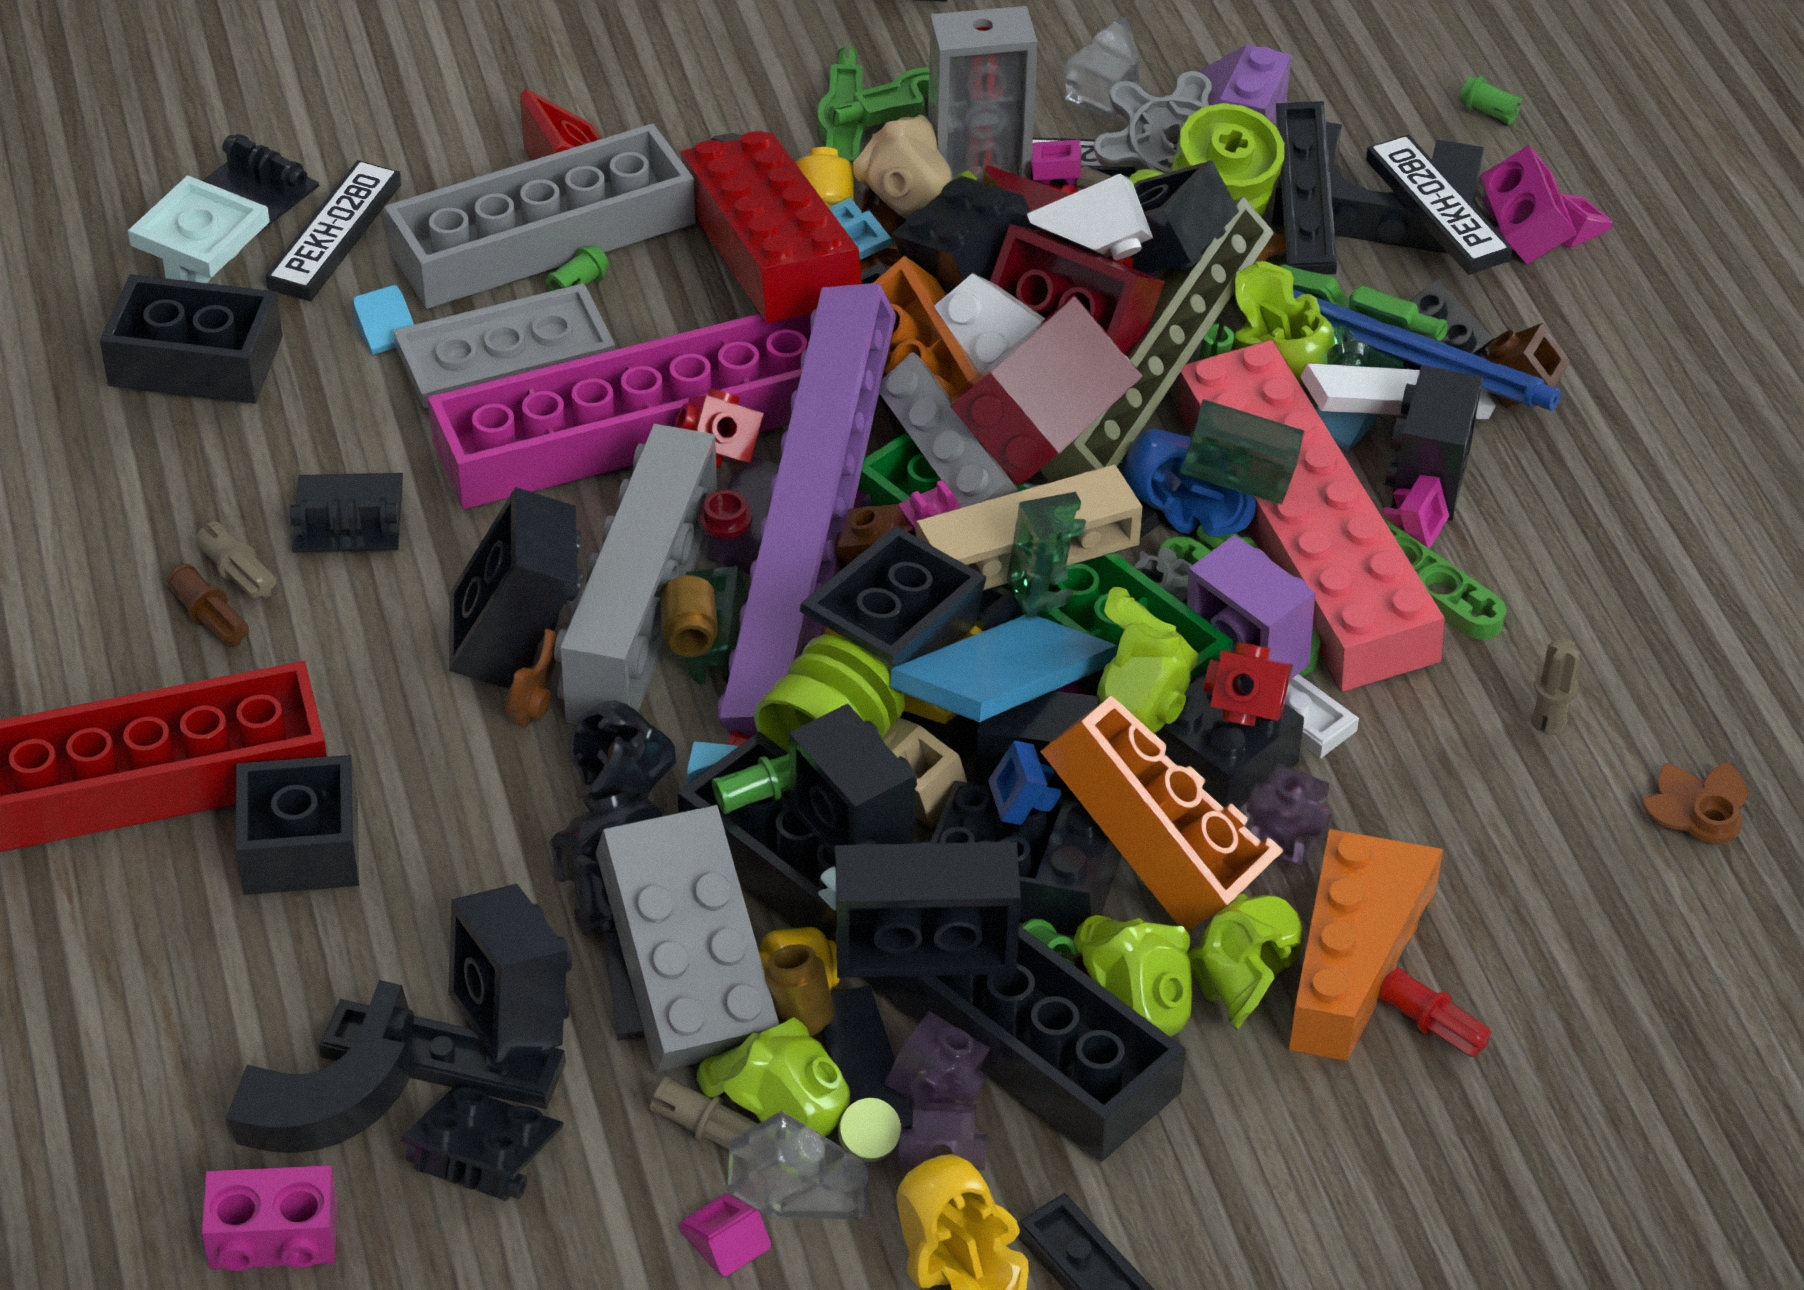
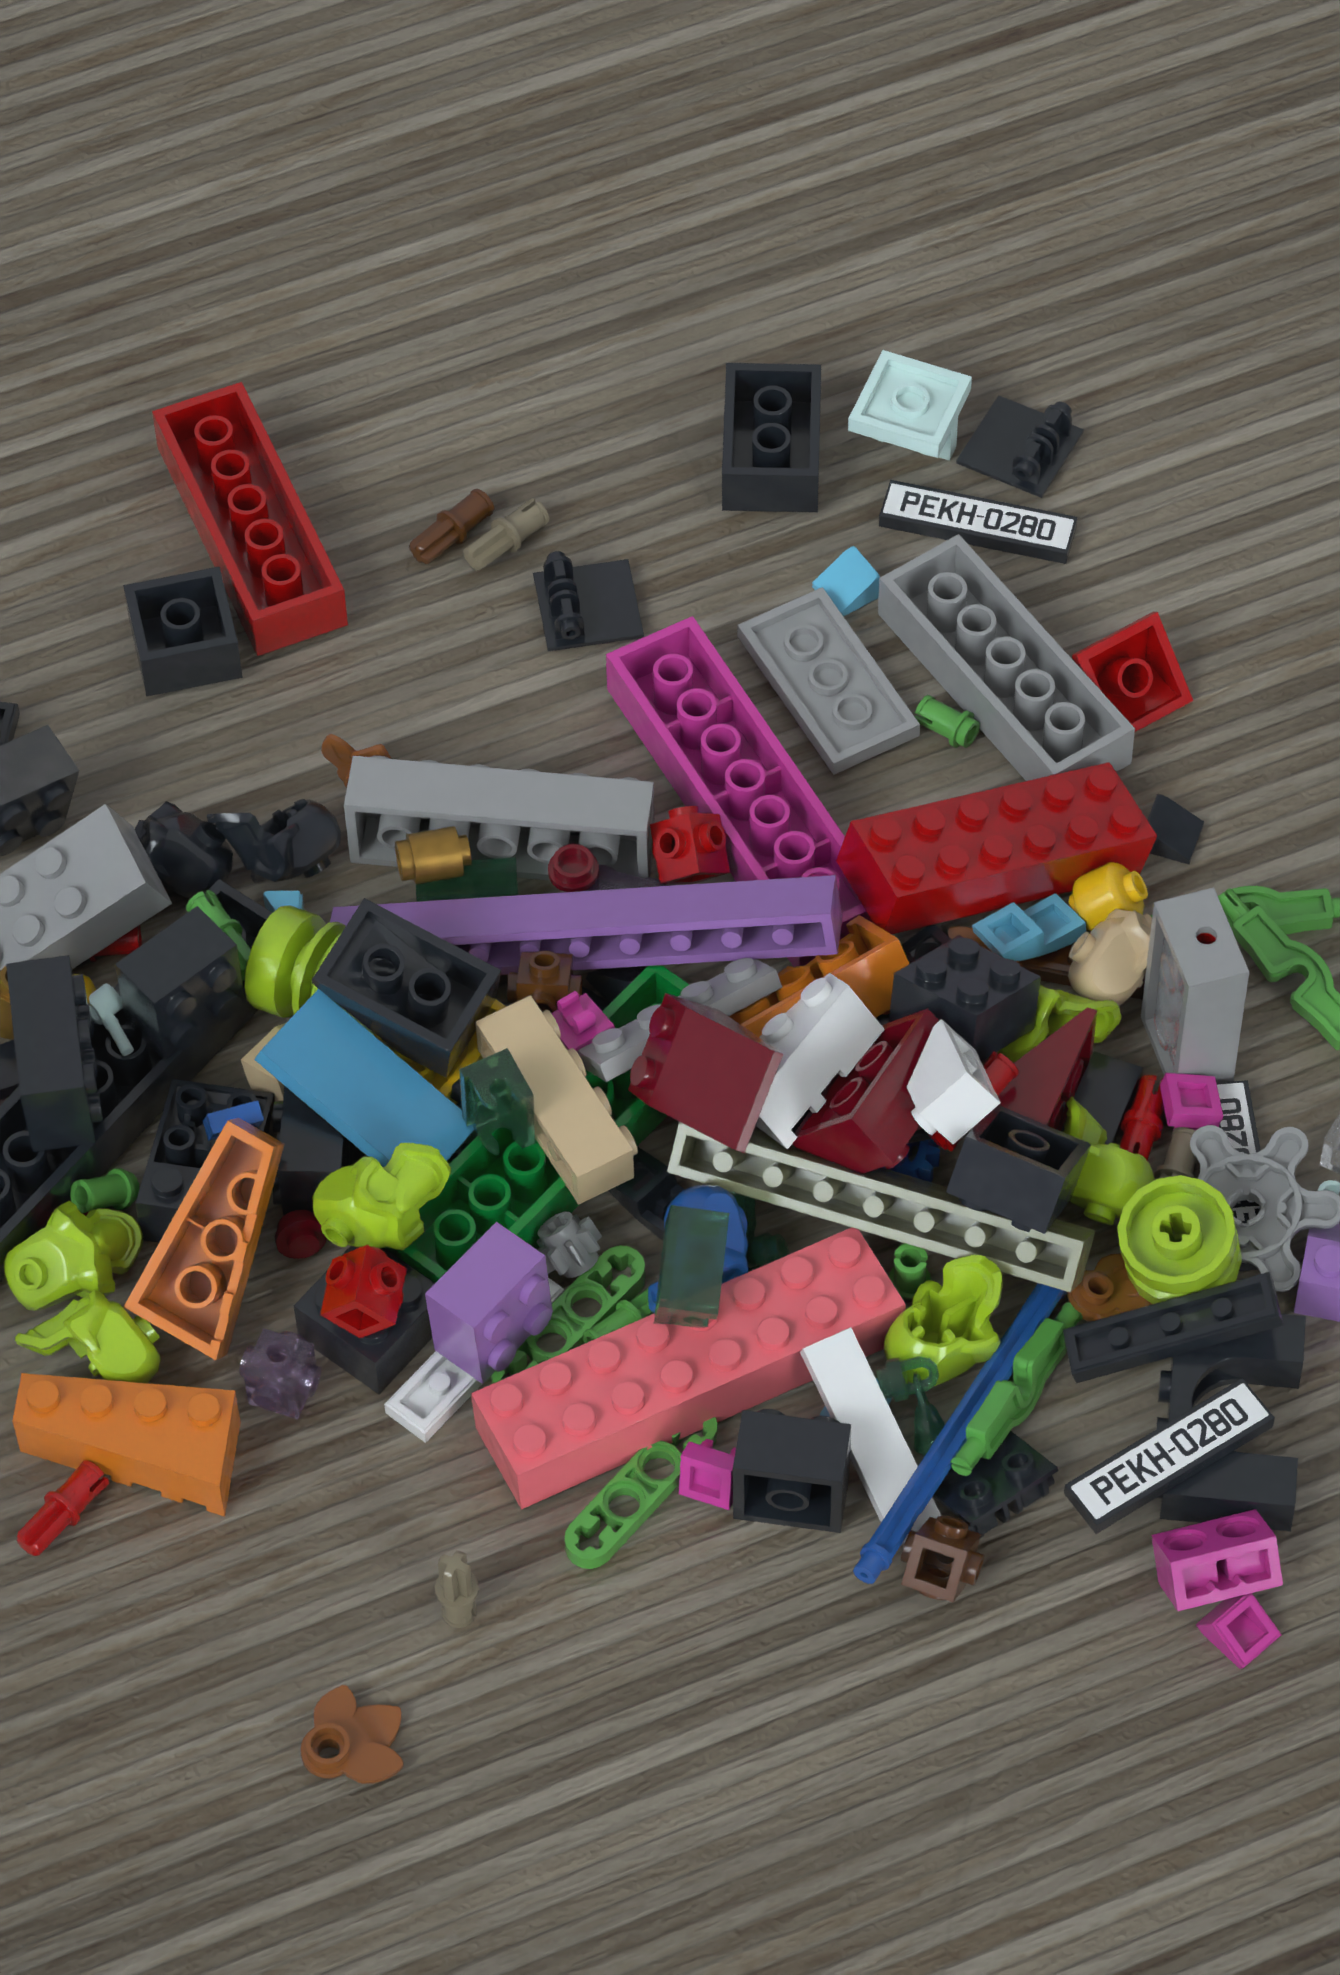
camera: 85 degrees right, 10 degrees up
(514, 588) = (442, 716): black brick -> none

